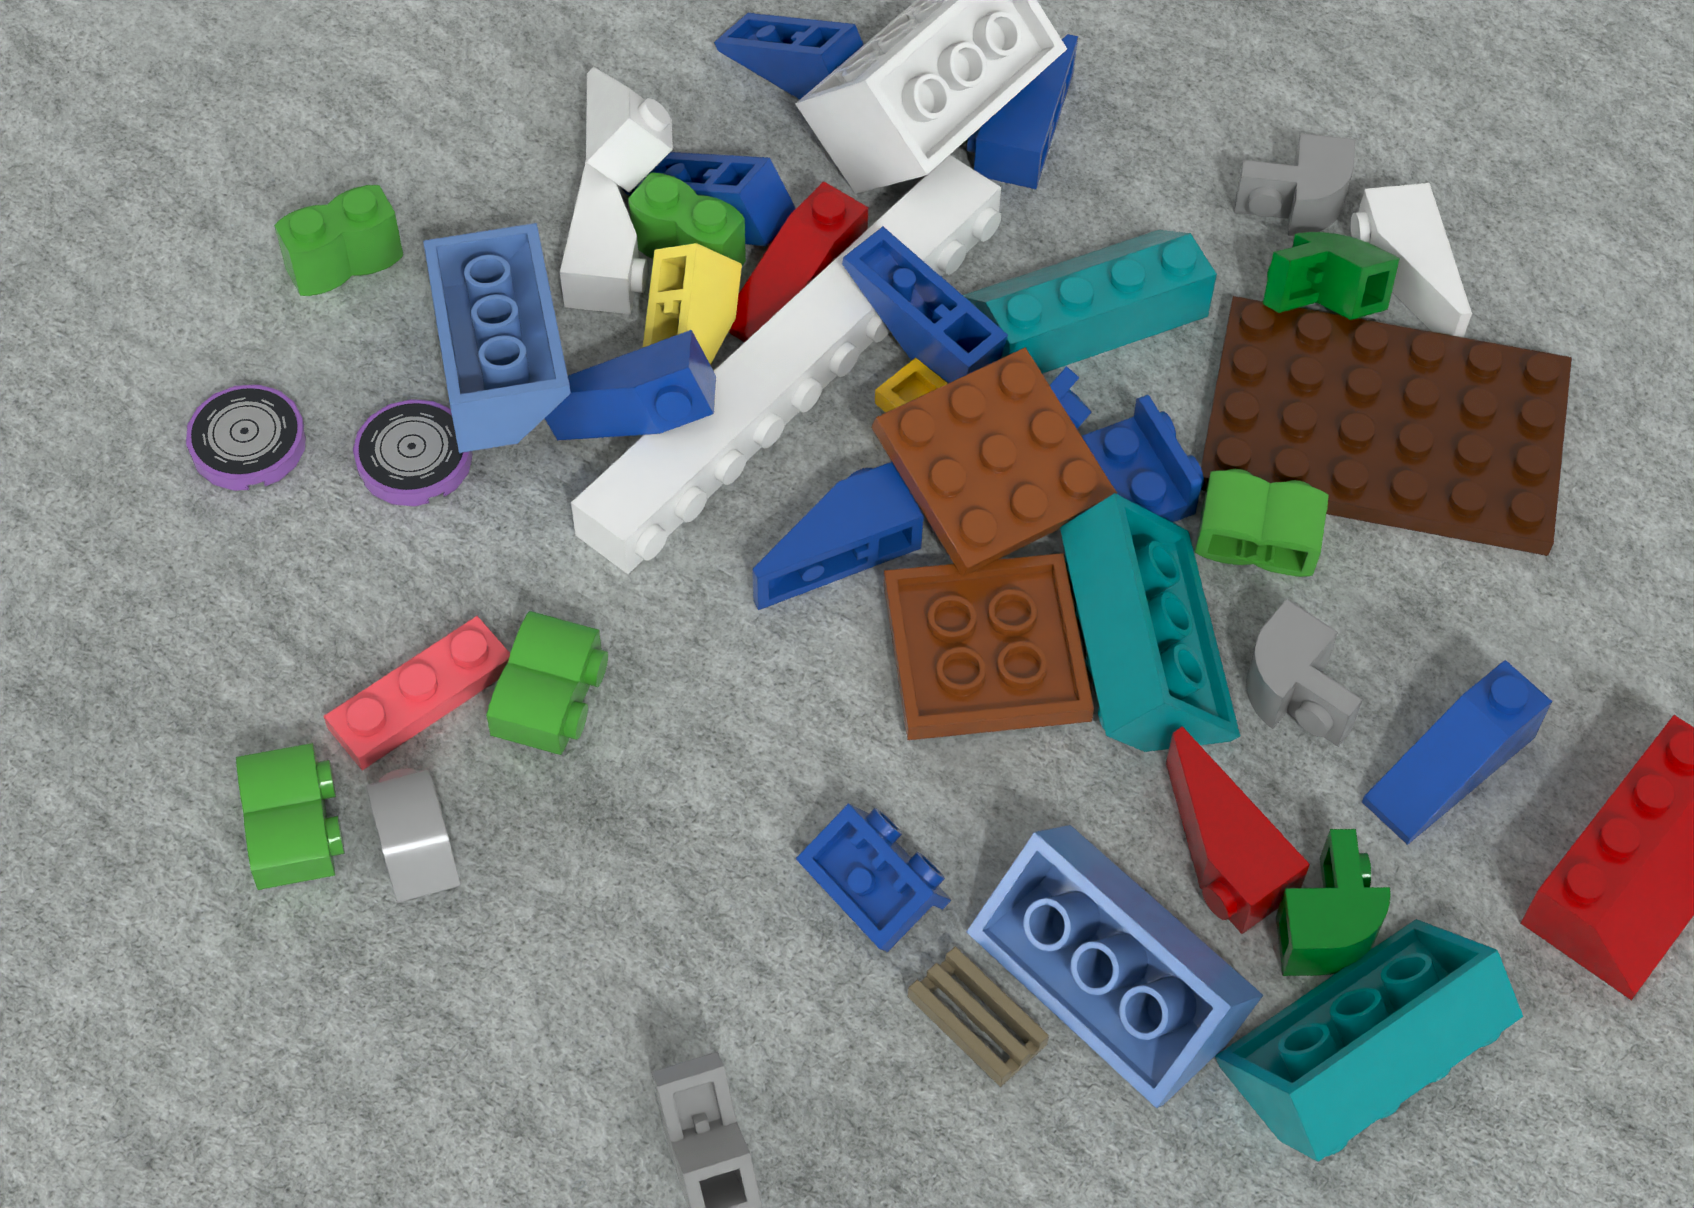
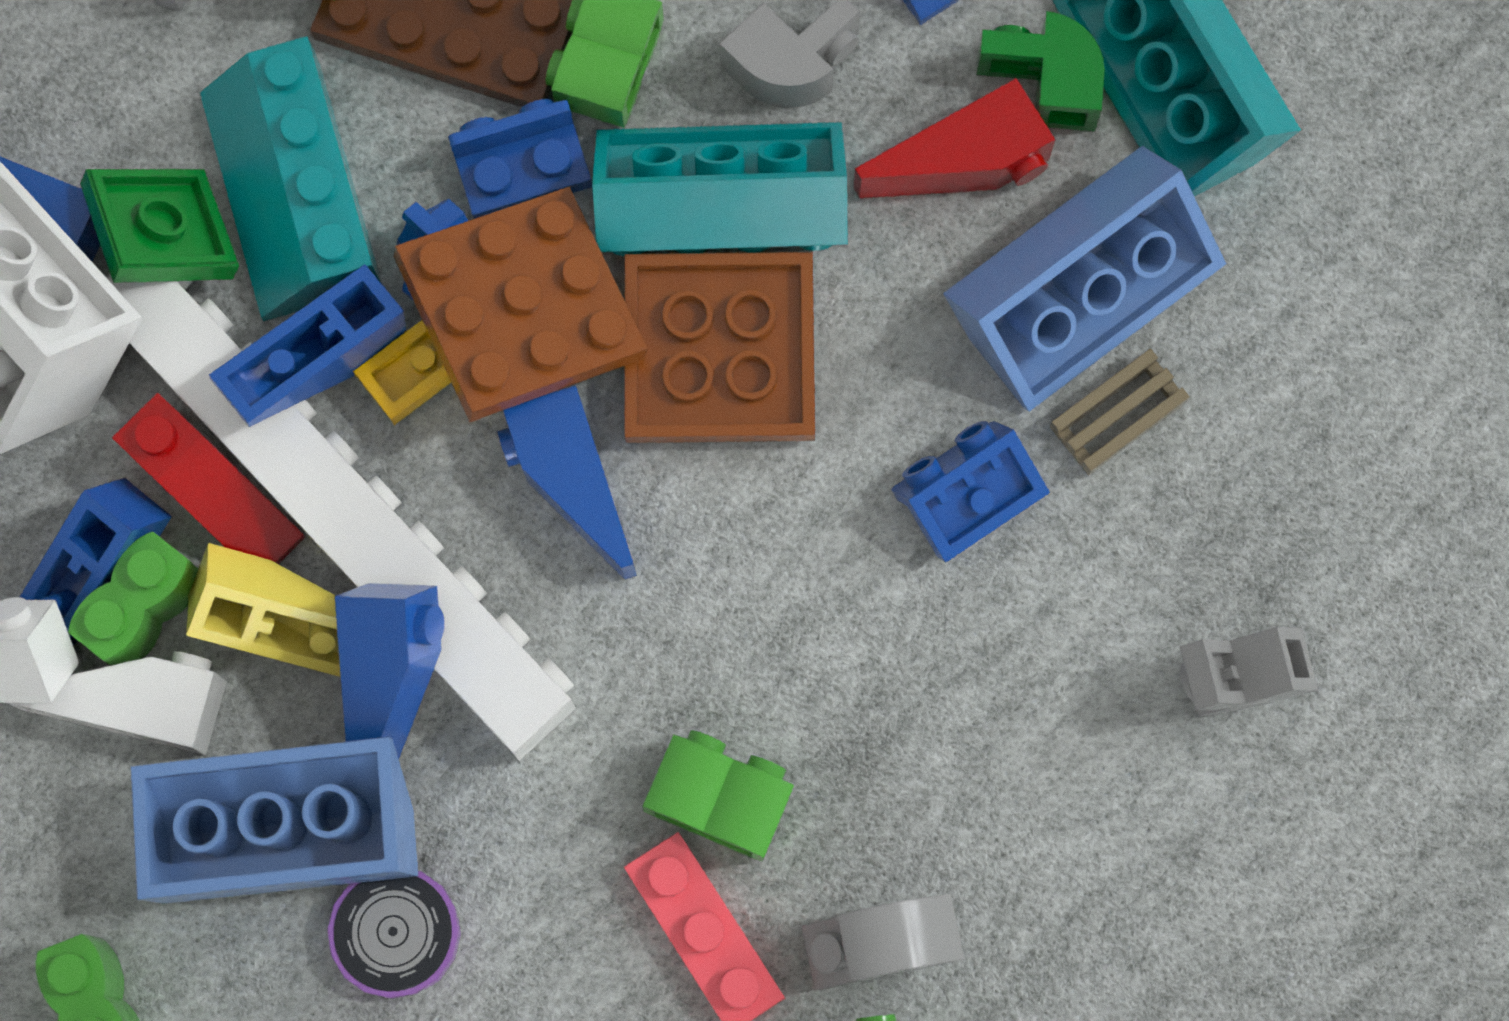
camera: 80 degrees left, 20 degrees up
(1022, 197) = (158, 225): none -> green tile

